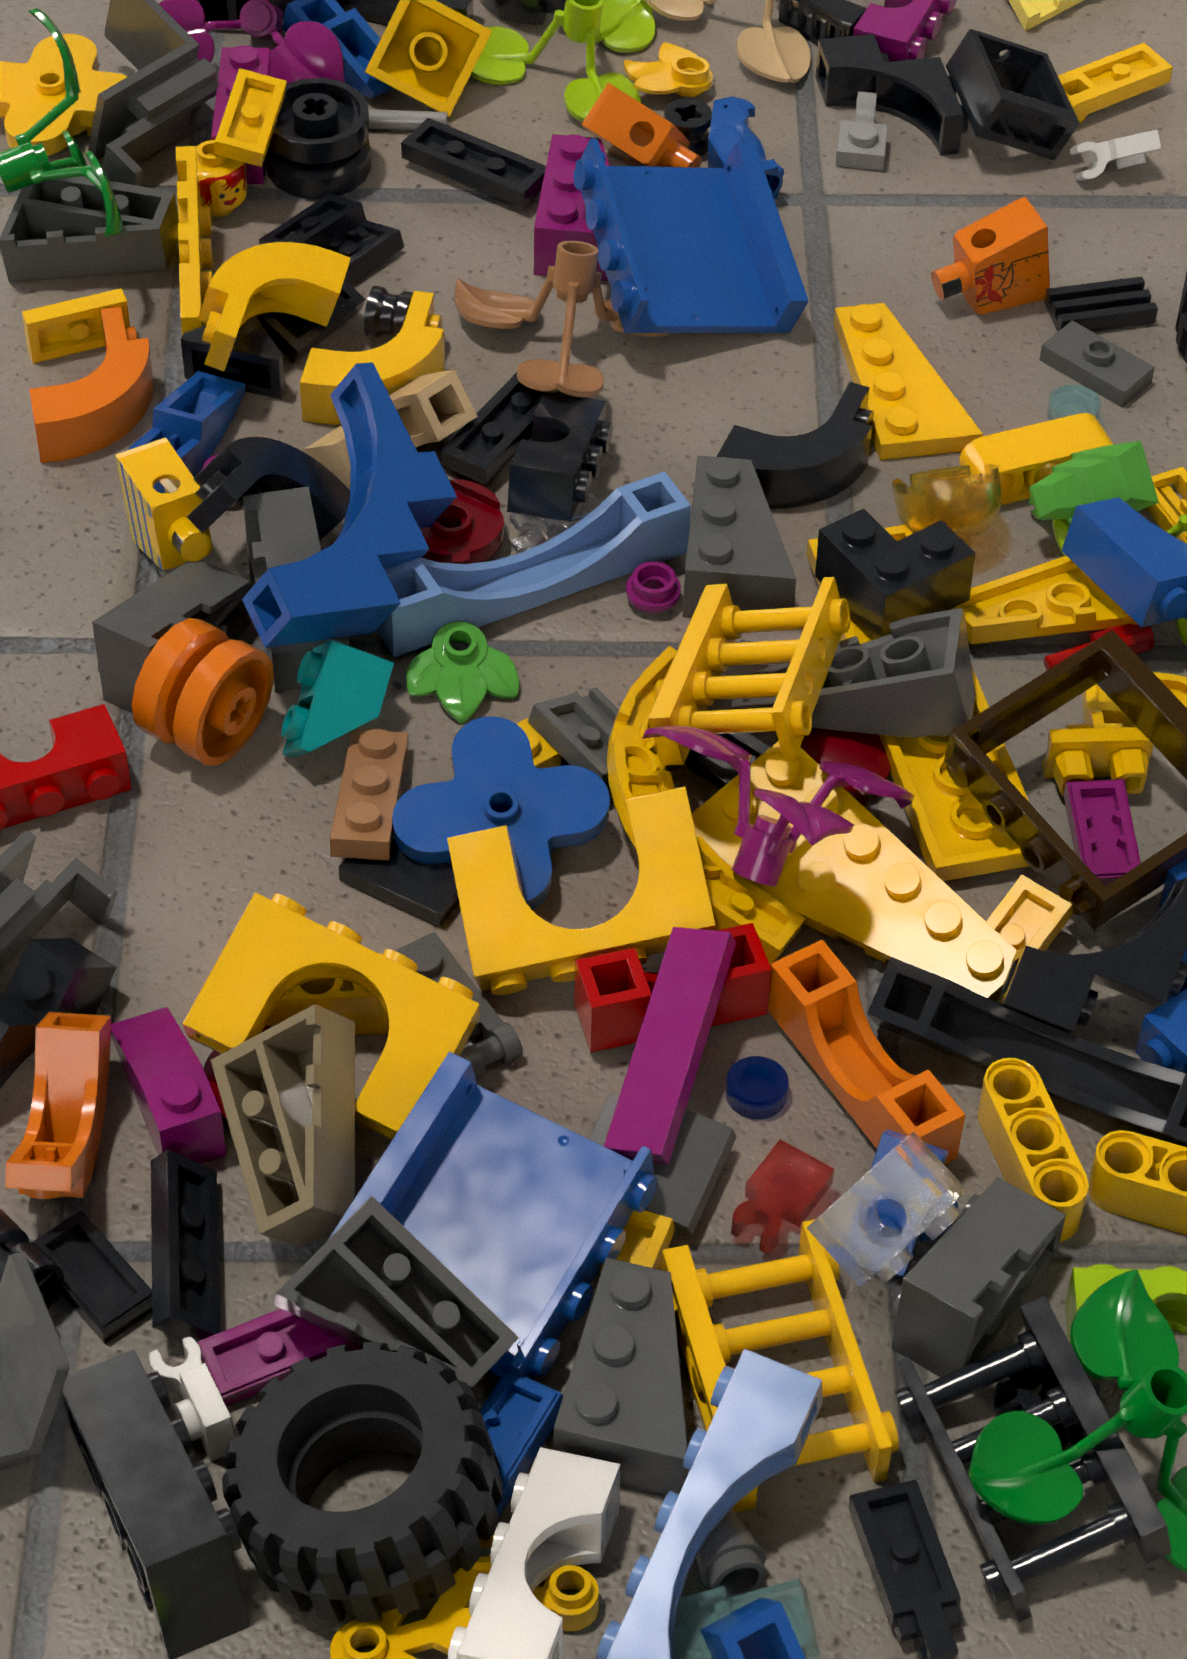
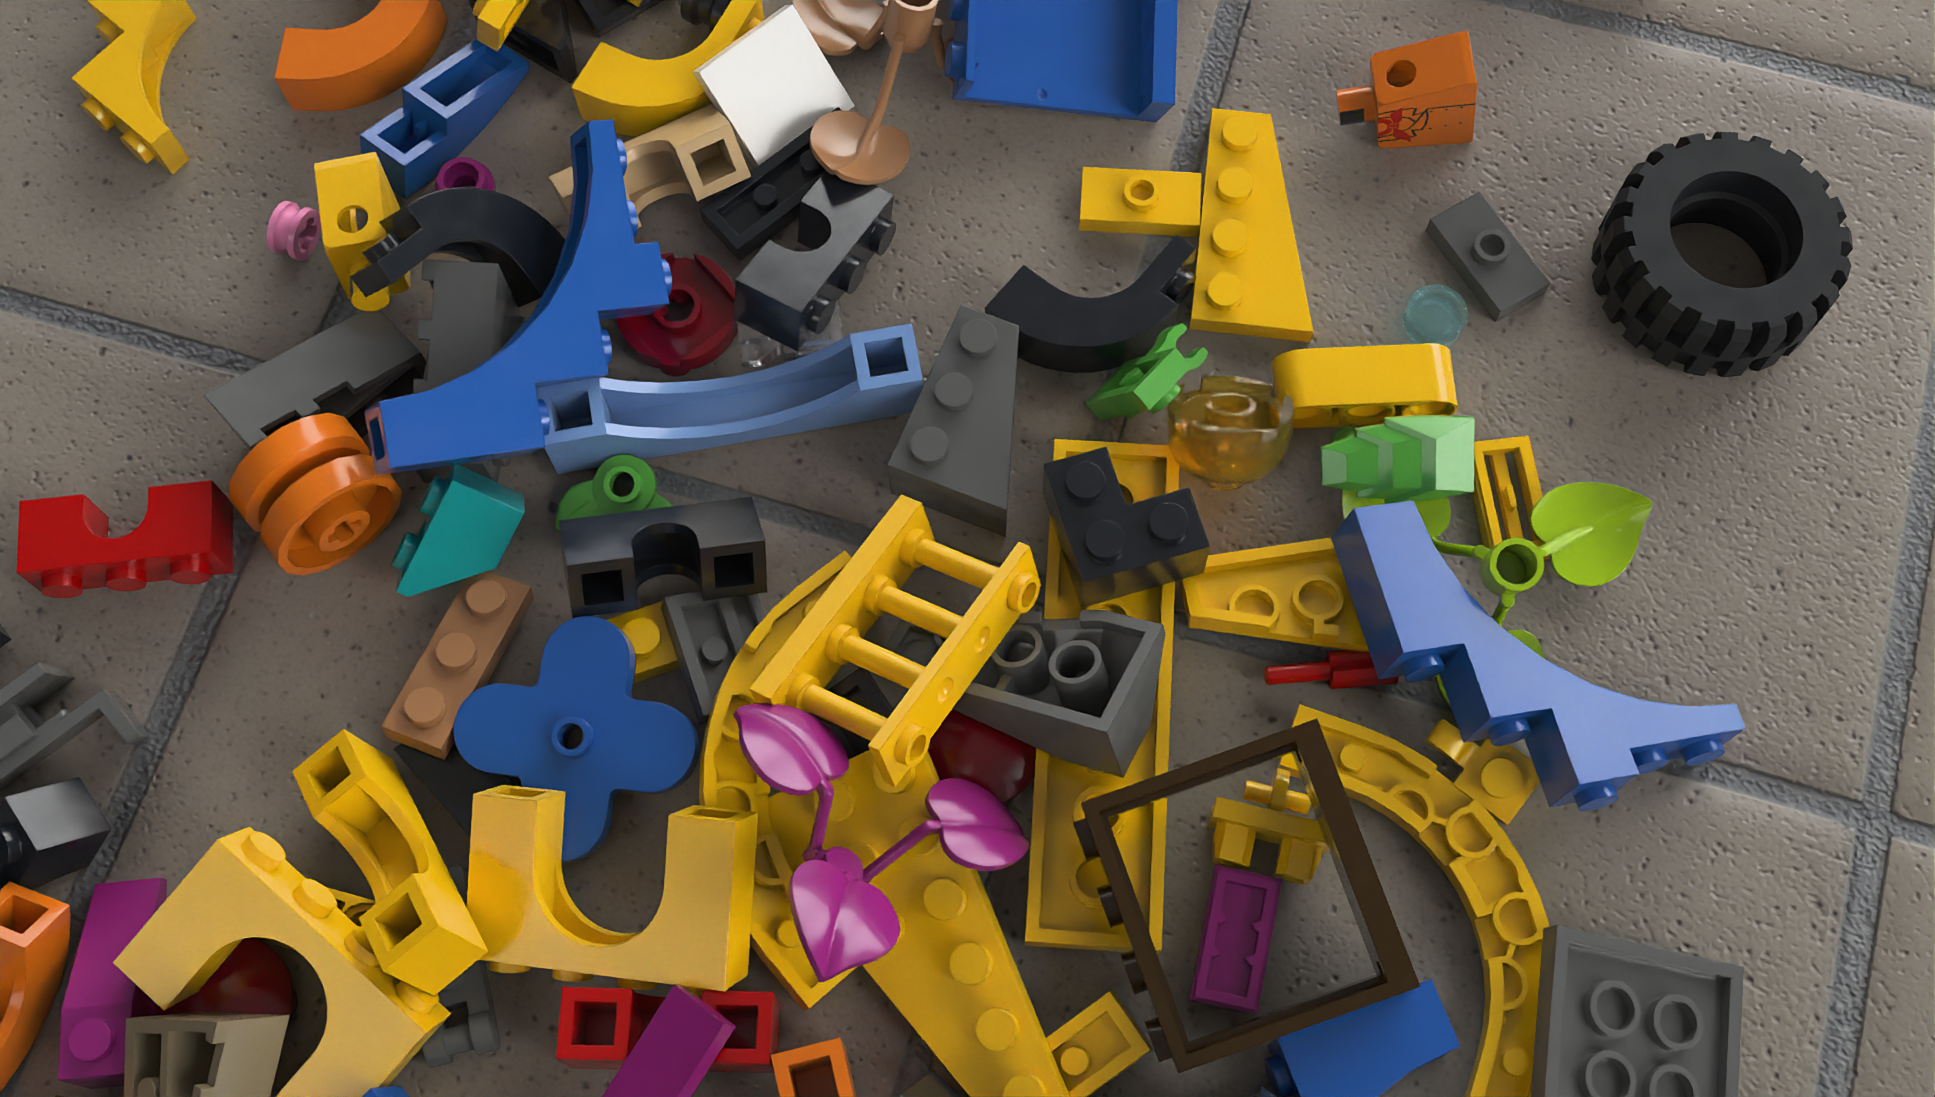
camera: 20 degrees right, 20 degrees up
(88, 535) = (293, 230): none -> bright pink bush
(436, 931) = (419, 917): none -> yellow arch
(473, 342) = (772, 84): none -> white tile
(491, 677) = (707, 541): none -> black arch
(653, 587) = (864, 439): magenta plate -> none
(800, 381) = (1140, 201): none -> yellow plate
(876, 472) = (1147, 380): none -> bright green plate
(1101, 304) = (1523, 164): black tile -> none

